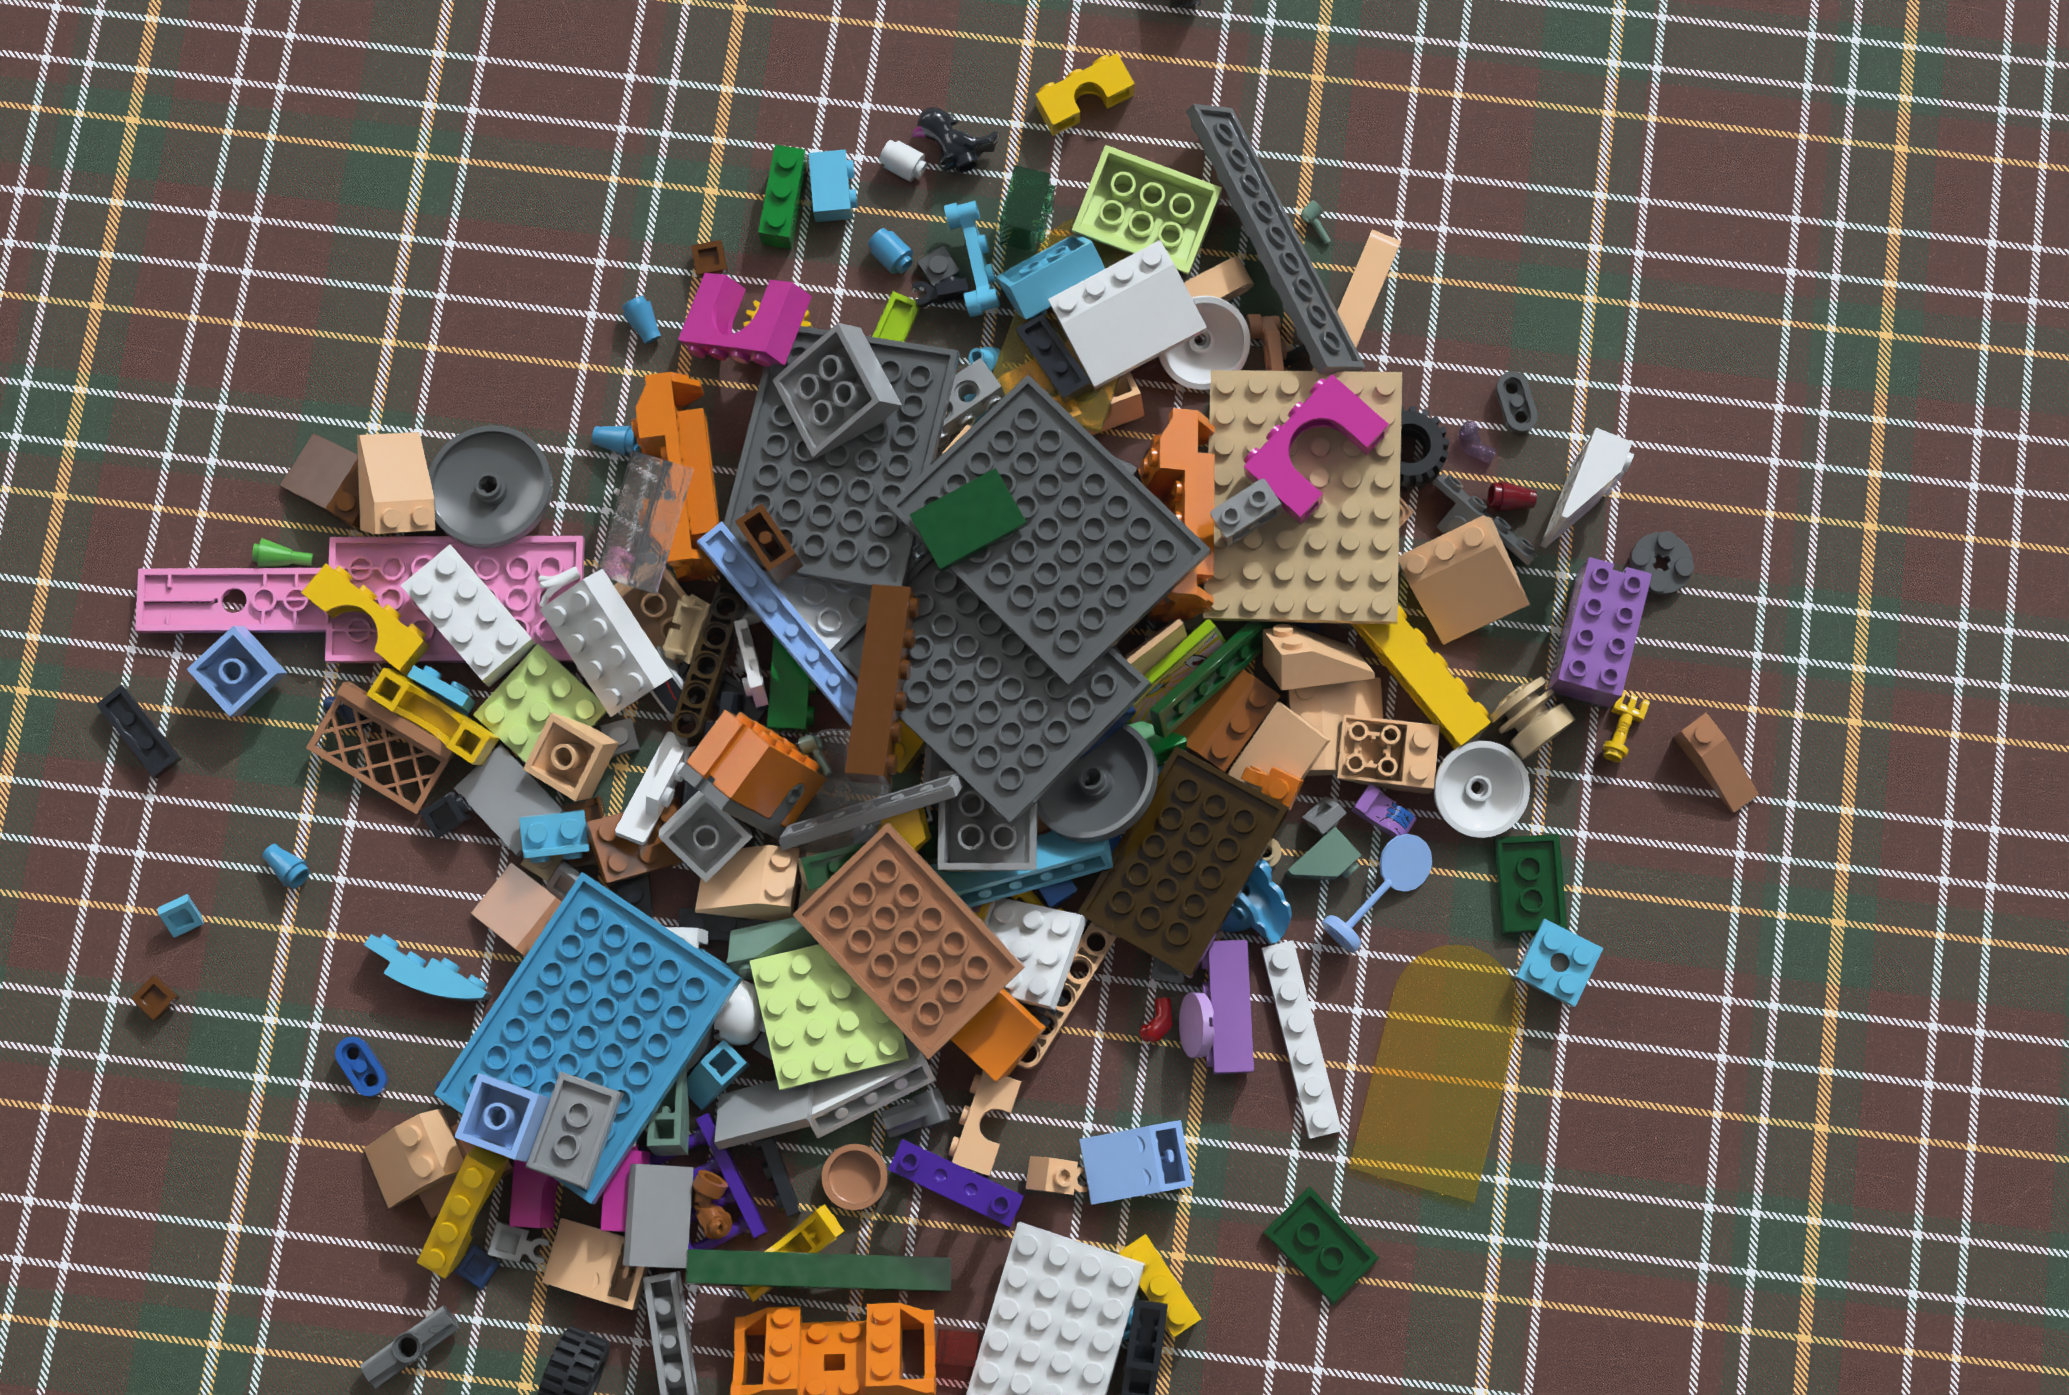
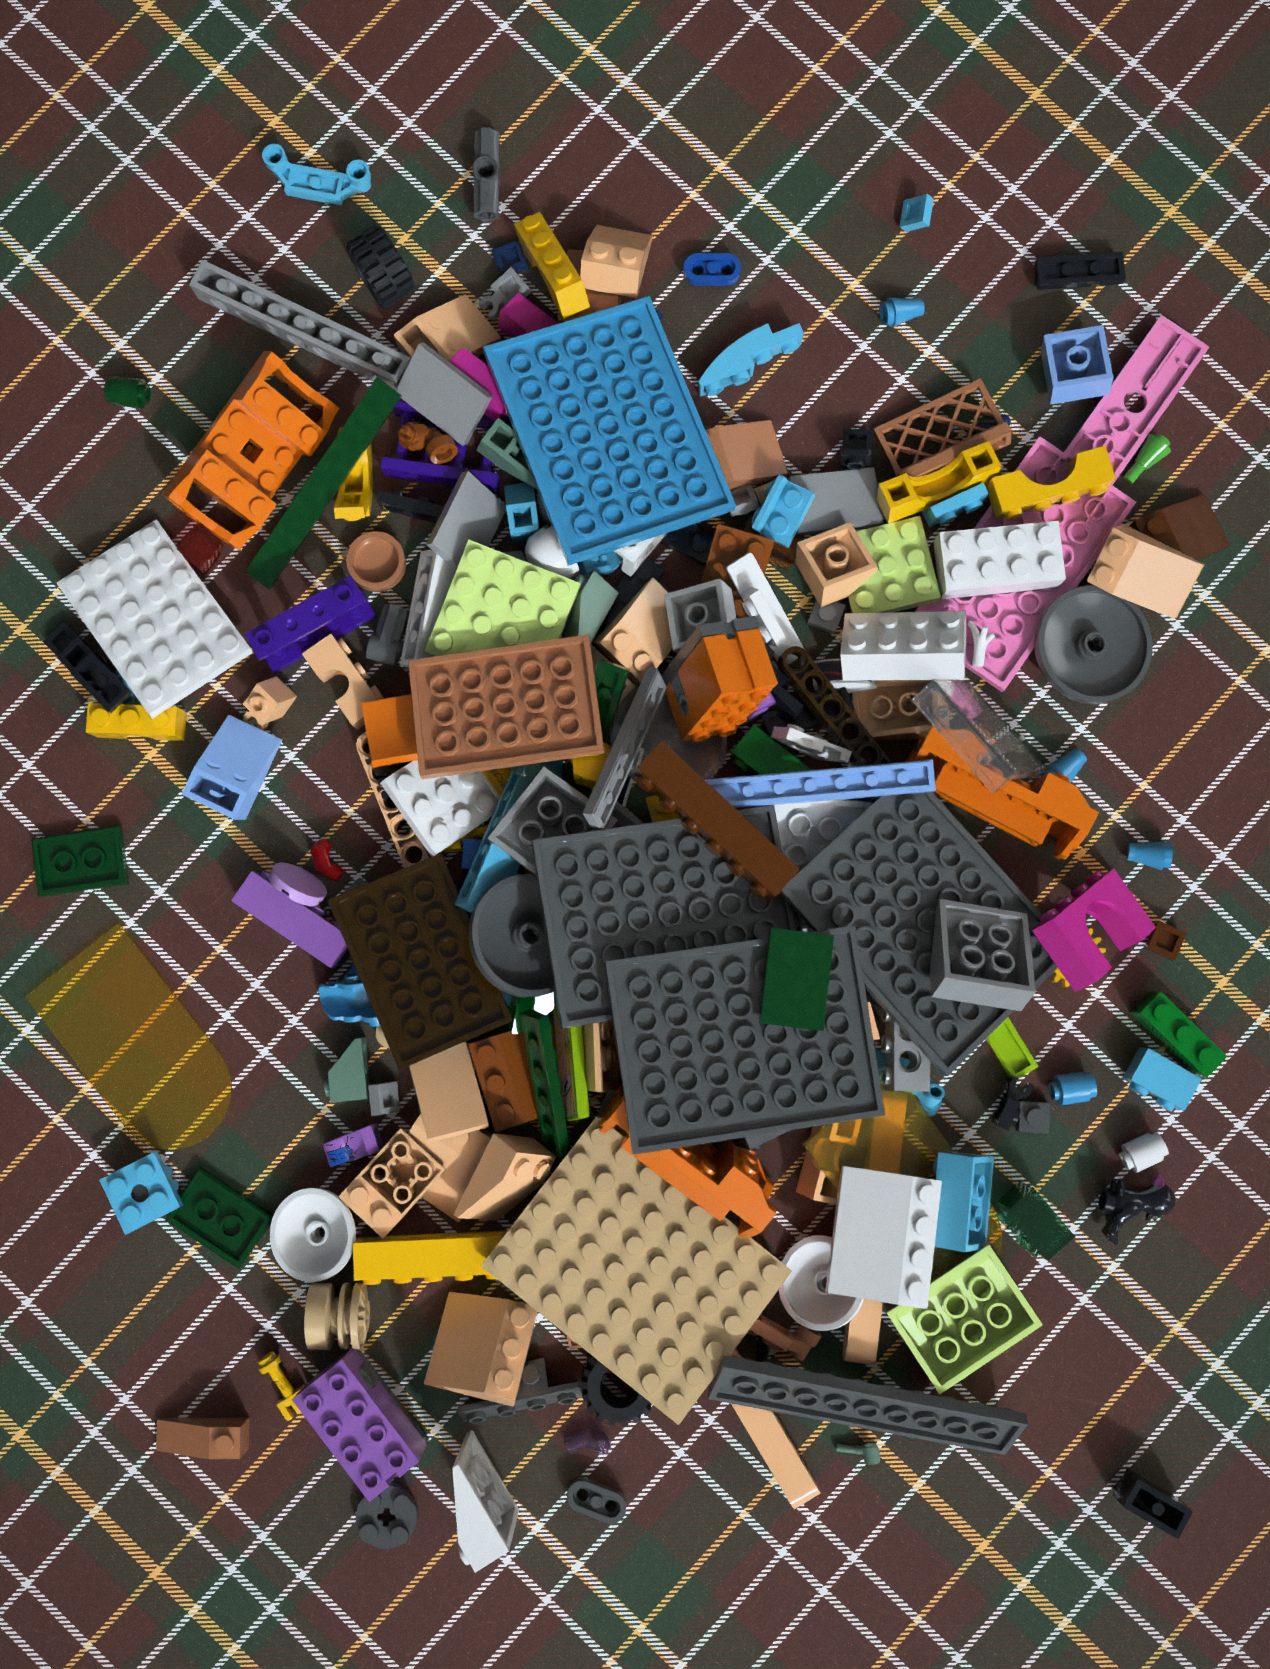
camera: 130 degrees right, 5 degrees up
(155, 997) = (868, 158): reddish brown plate -> none
(502, 1117) = (590, 322): light blue brick -> none
(574, 1130) = (545, 370): light grey tile -> none
(691, 615) = (881, 724): tan hinge -> none
(769, 543) = (890, 812): reddish brown brick -> none
(814, 744) = (713, 749): sand green hand -> none
(984, 296) = (981, 1136): medium azure plate -> none
(1053, 358) = (890, 1150): black plate -> none
(1105, 78) = (1101, 1368): yellow arch -> none
(1246, 511) = (652, 1210): light grey bracket -> none
(1277, 784) = (425, 1075): orange plate -> none
(1301, 1039) = (235, 957): white plate -> none
(1328, 406) = (689, 1344): dark pink arch -> none
(1403, 866) = (302, 1127): light blue piece -> none
(1508, 496) = (525, 1435): dark red cone -> none

